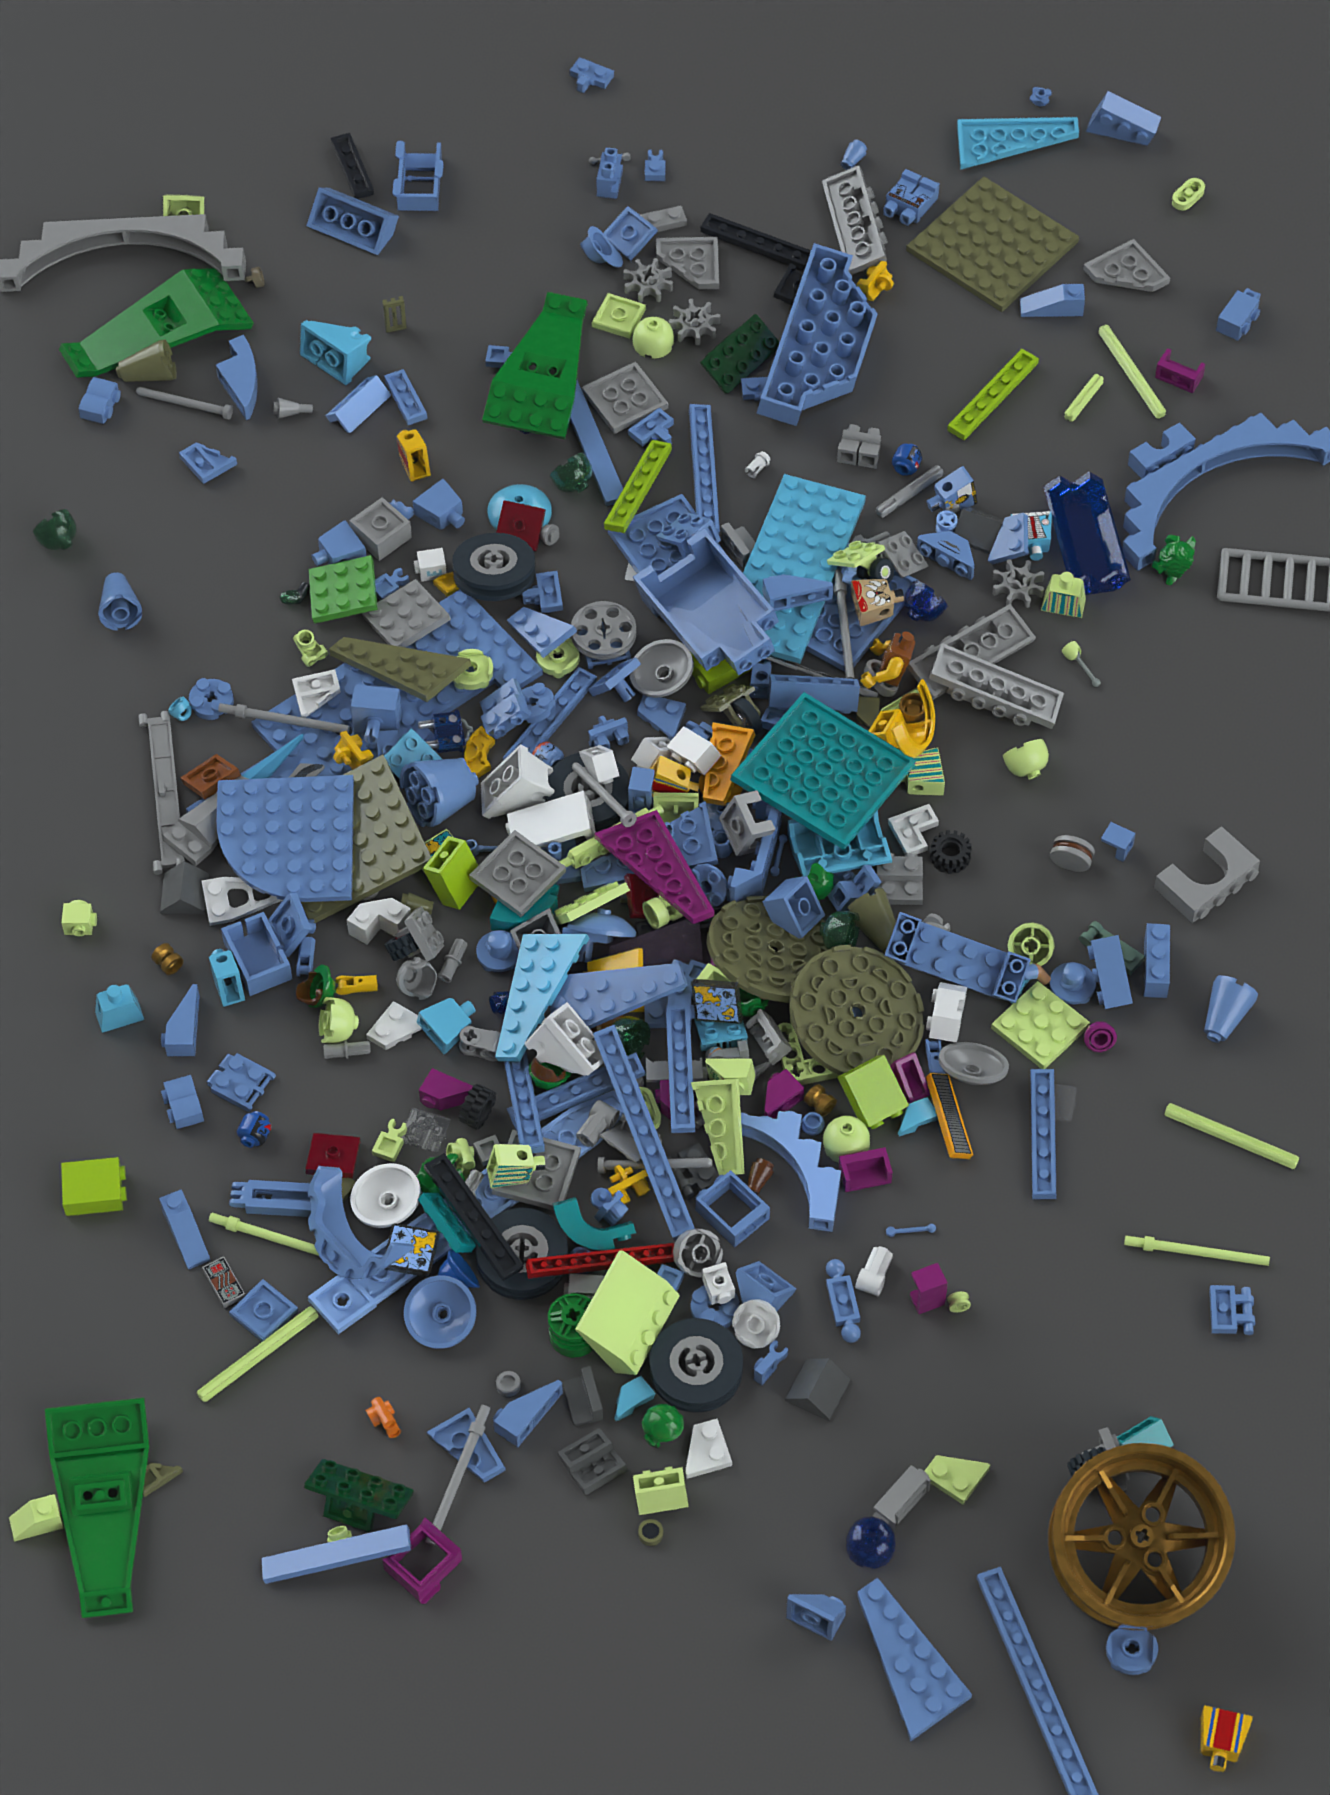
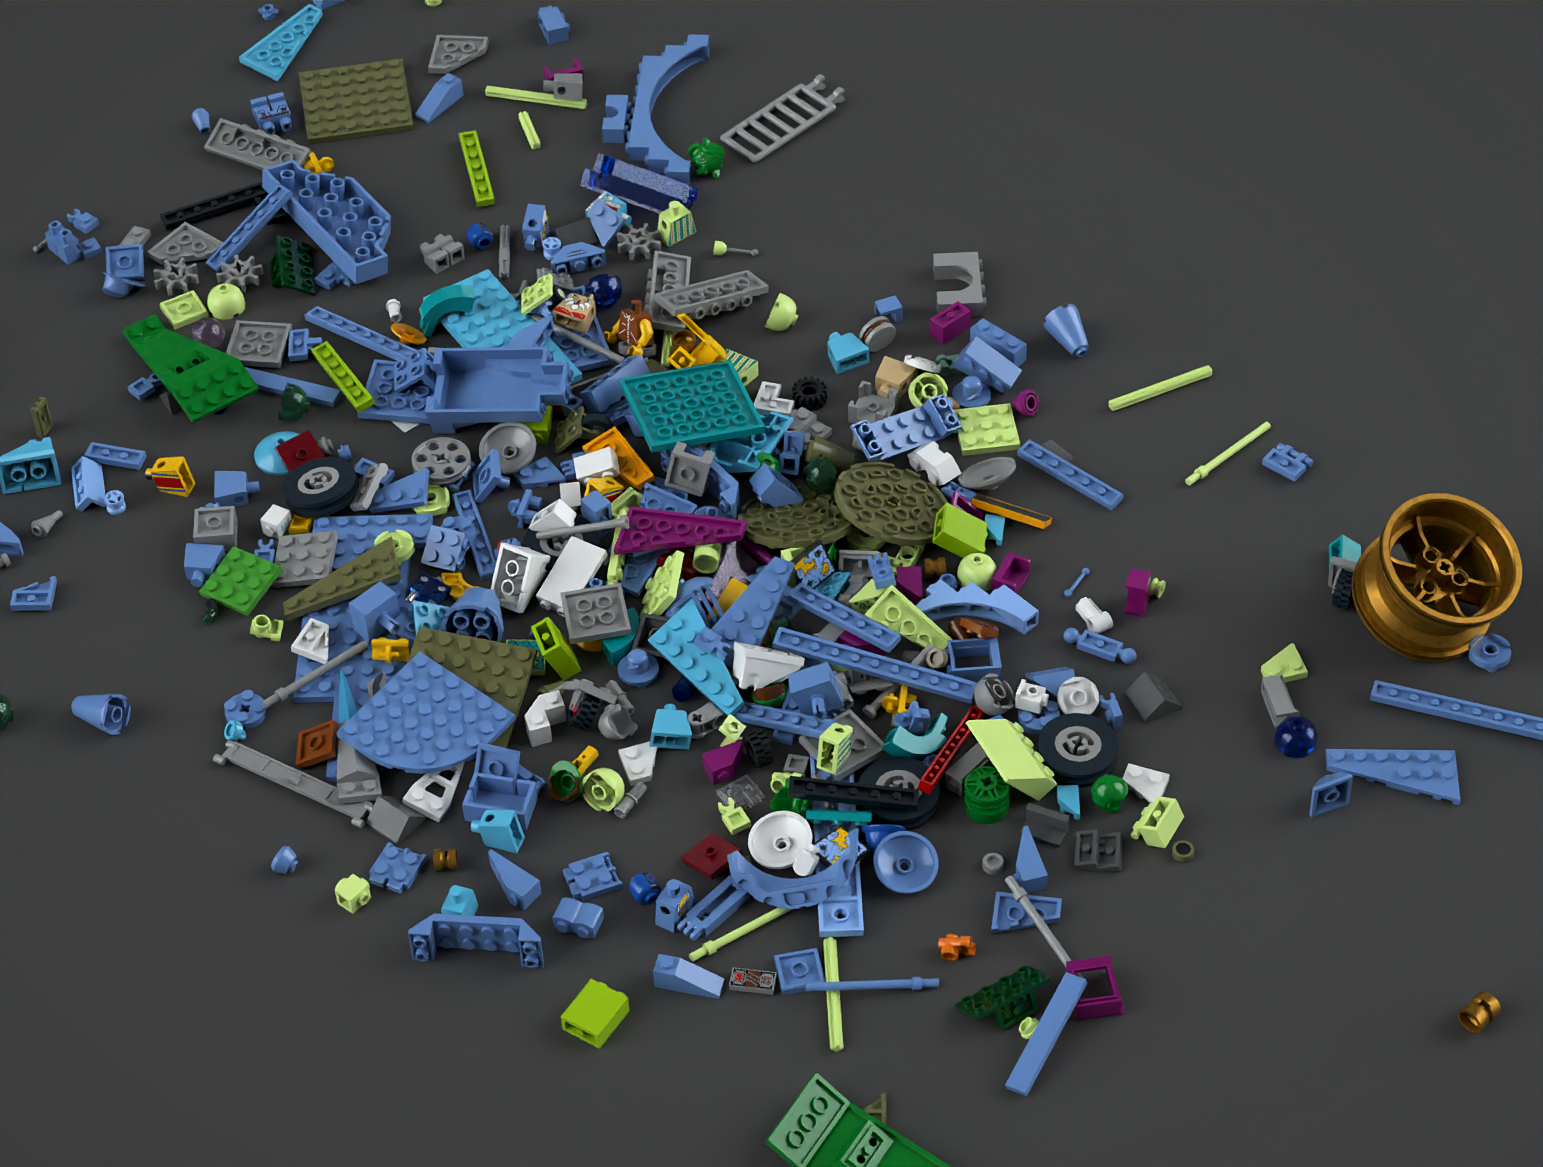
camera: 50 degrees left, 10 degrees down
(71, 845) = (284, 861): none -> medium blue cone
(71, 1007) = (475, 933): none -> medium blue slope
(133, 931) = (396, 868): none -> medium blue plate
(252, 1162) = (673, 904): none -> medium blue torso
(319, 1411) = (914, 983): none -> medium blue bar
(354, 436) = (115, 502): none -> light blue wheel
(374, 1232) = (806, 860): none -> white arm
(477, 1071) = (732, 730): none -> yellowish green bracket
(523, 600) = (368, 487): none -> light grey hinge
(550, 983) = (711, 642): none -> medium blue plate
(556, 554) = (345, 452): none -> medium blue plate
(563, 1106) = (816, 690): none -> medium blue brick
(589, 948) = (715, 619): none -> medium blue tile
(597, 354) = (208, 332): none -> clear purple piece
(627, 196) = (90, 248): none -> medium blue plate
(701, 1176) = (937, 658): none -> dark tan tile
(736, 495) = (408, 334): none -> light orange dish
(746, 287) = (249, 227): none -> medium blue tile
(755, 1059) = (881, 571): none -> medium blue hinge
(768, 1188) = (981, 629): none -> dark orange wing
(783, 494) = (444, 301): none -> teal arch
(979, 915) = (872, 406): none -> light grey panel
(1029, 843) = (846, 352): none -> medium azure torso
(1031, 904) = (894, 375): none -> tan torso
(1067, 916) = (923, 364): none -> white tile
(1147, 902) = (950, 322): none -> magenta panel
(1161, 384) = (565, 86): none -> light grey torso

